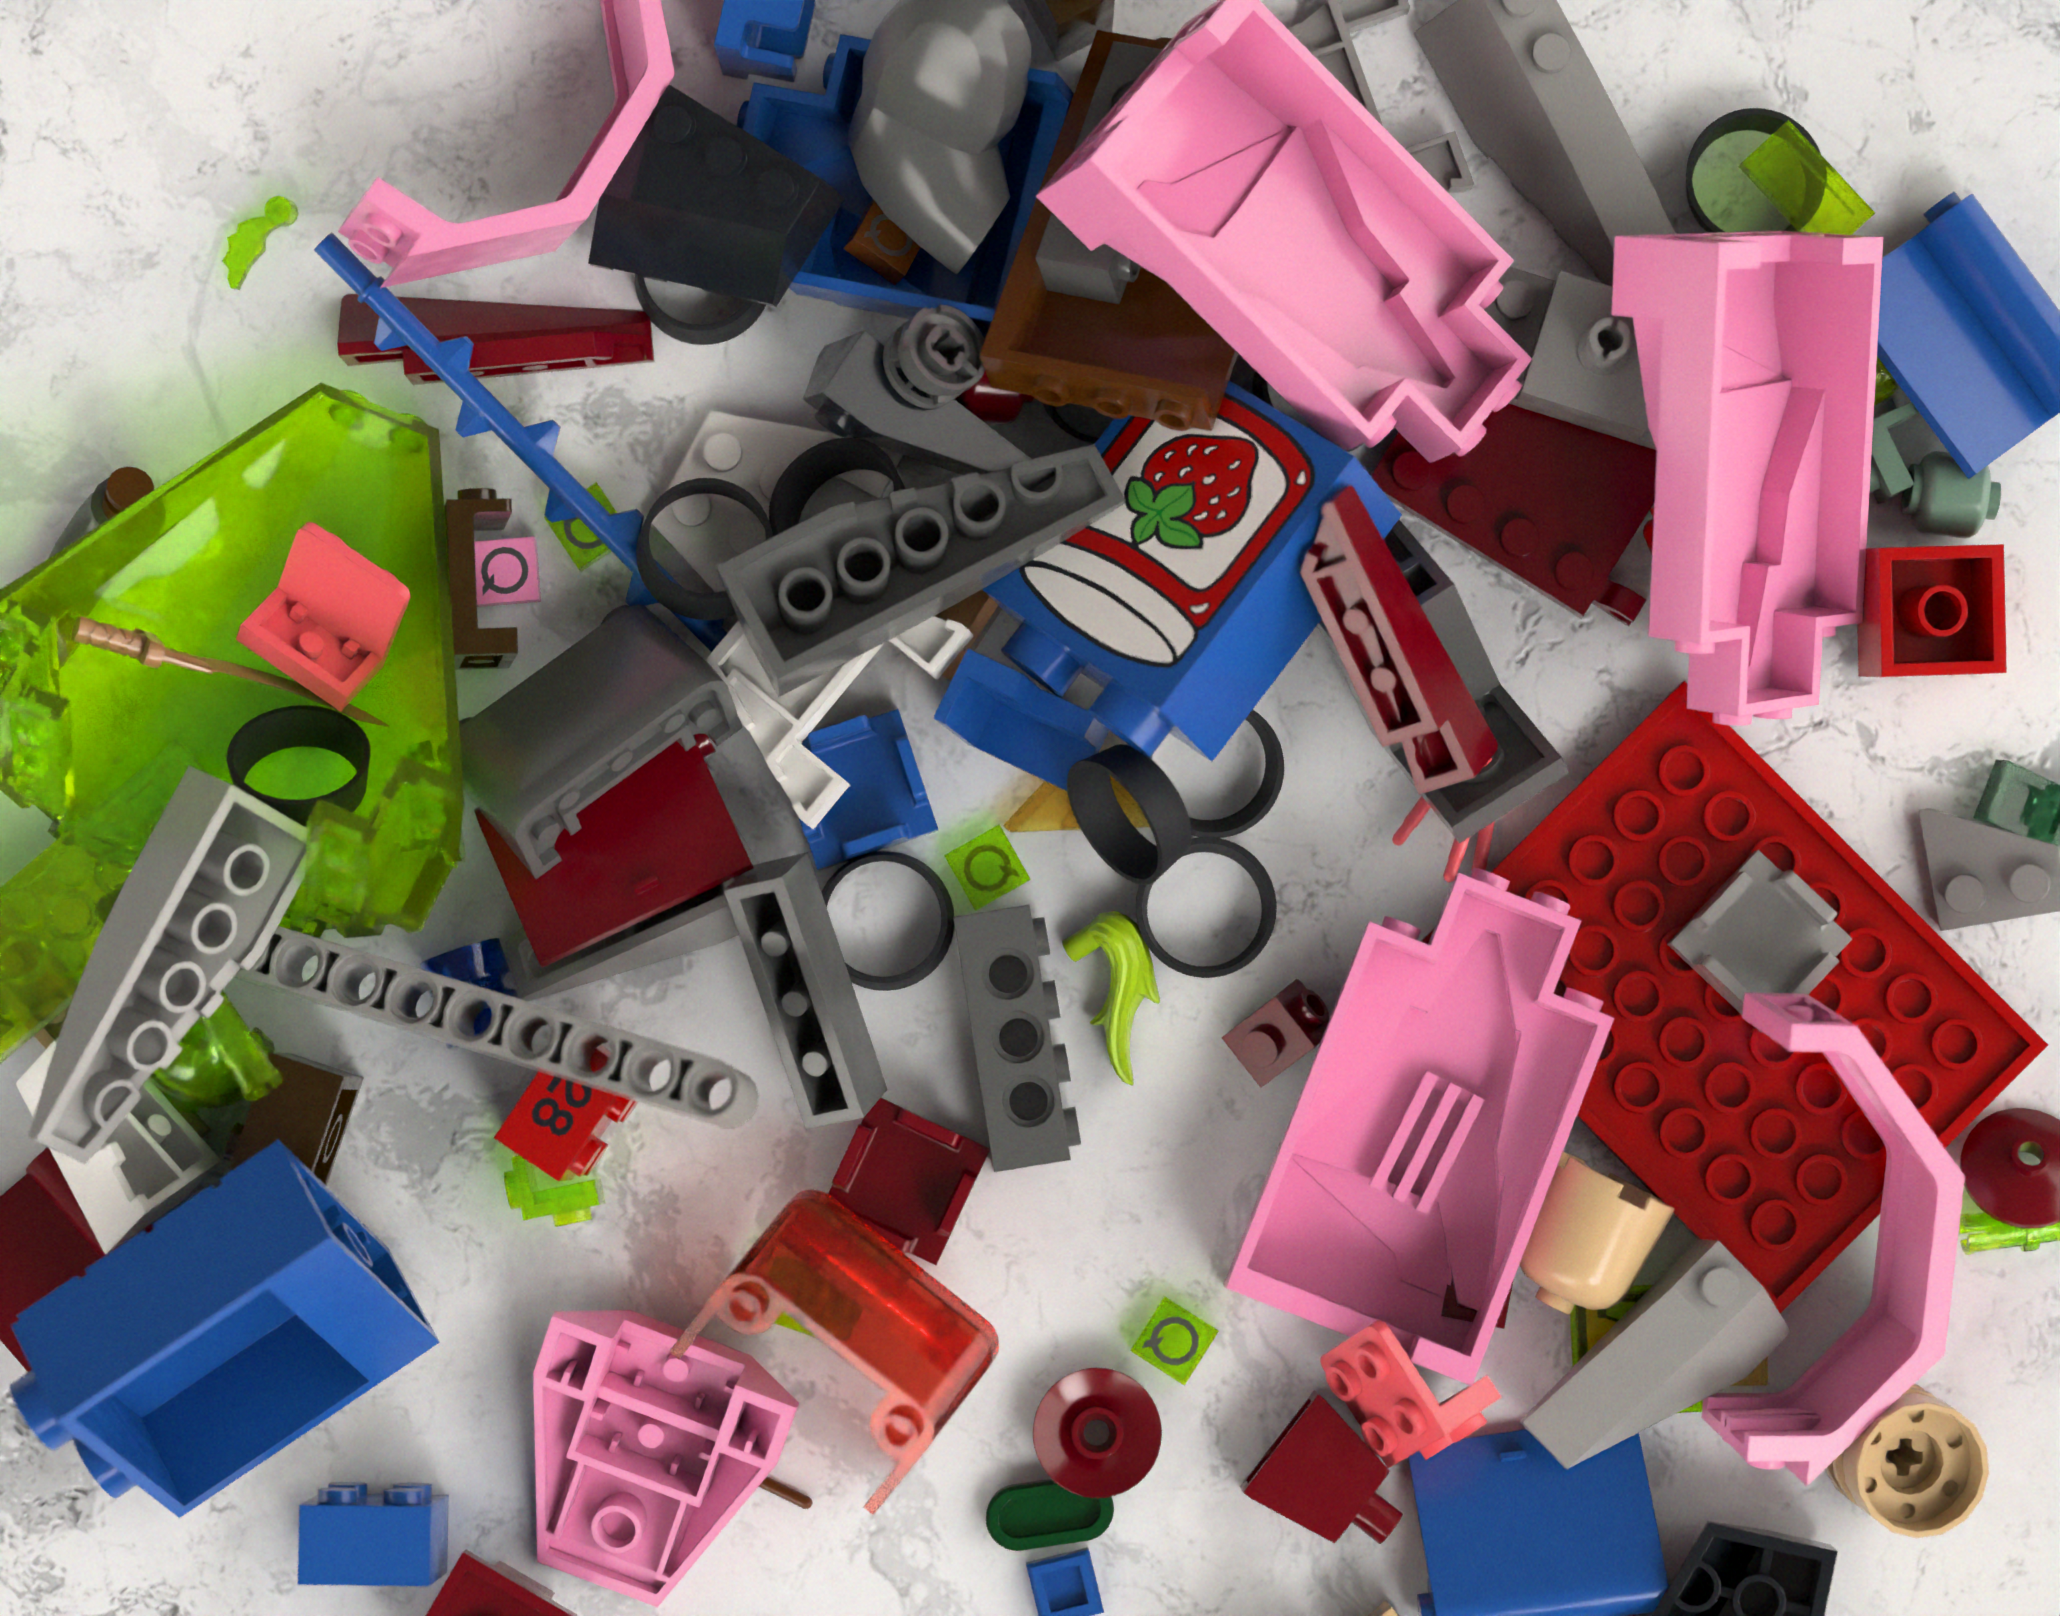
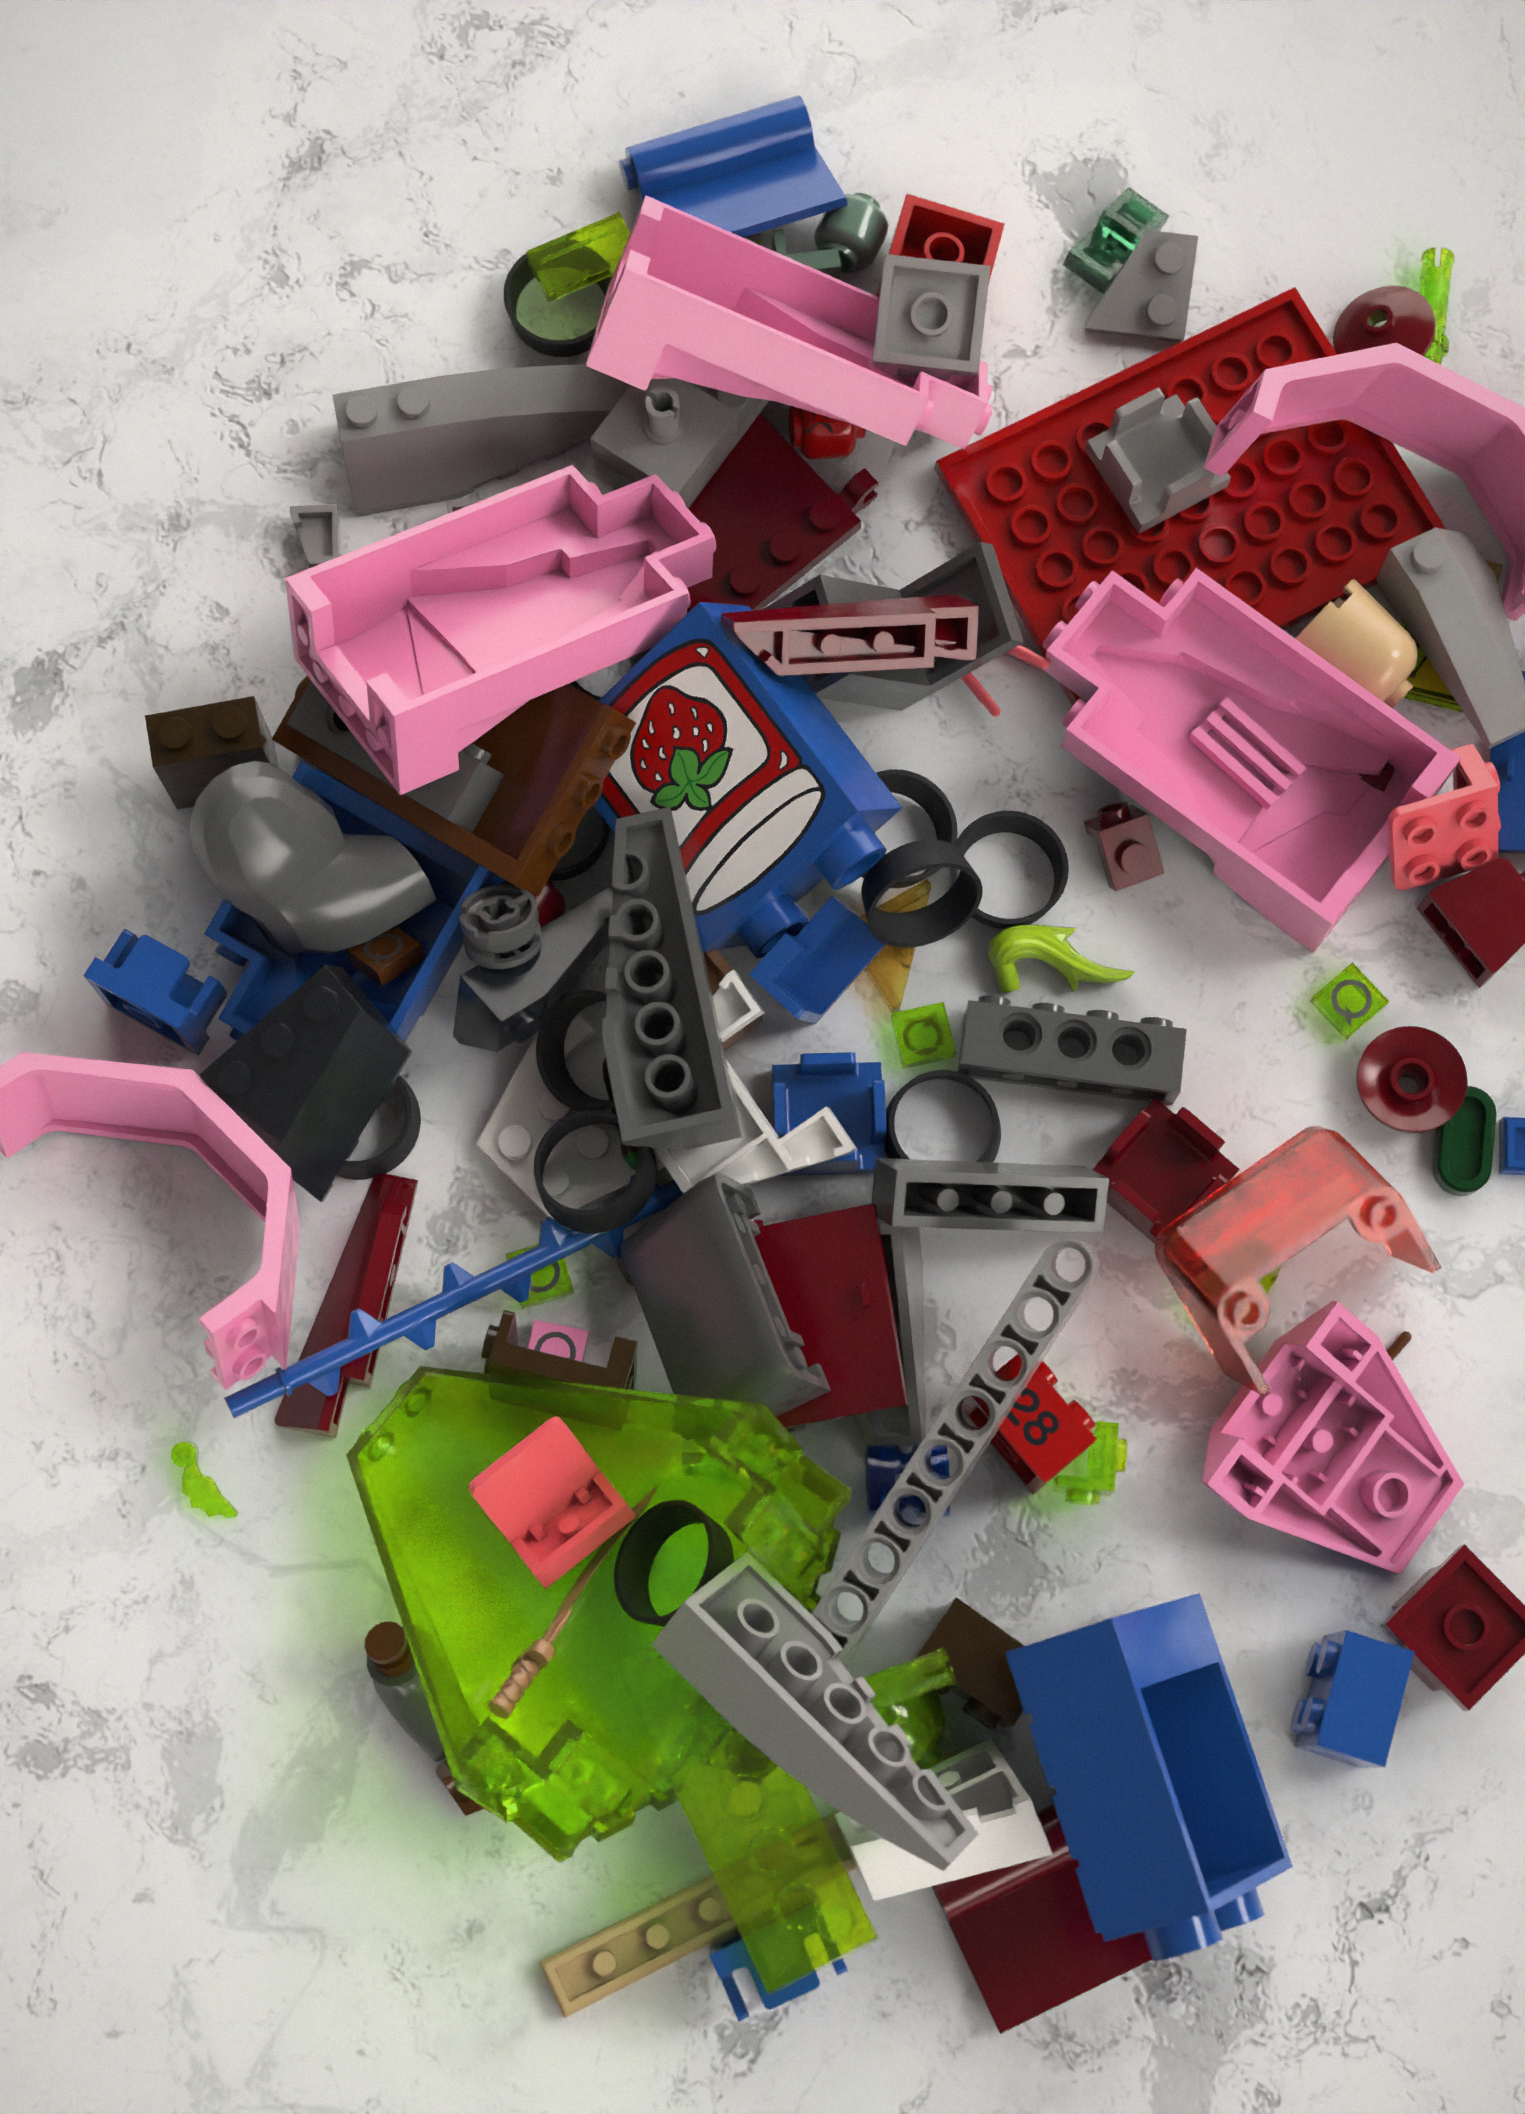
camera: 75 degrees left, 10 degrees down
(1834, 618) = (930, 317): none -> light grey panel

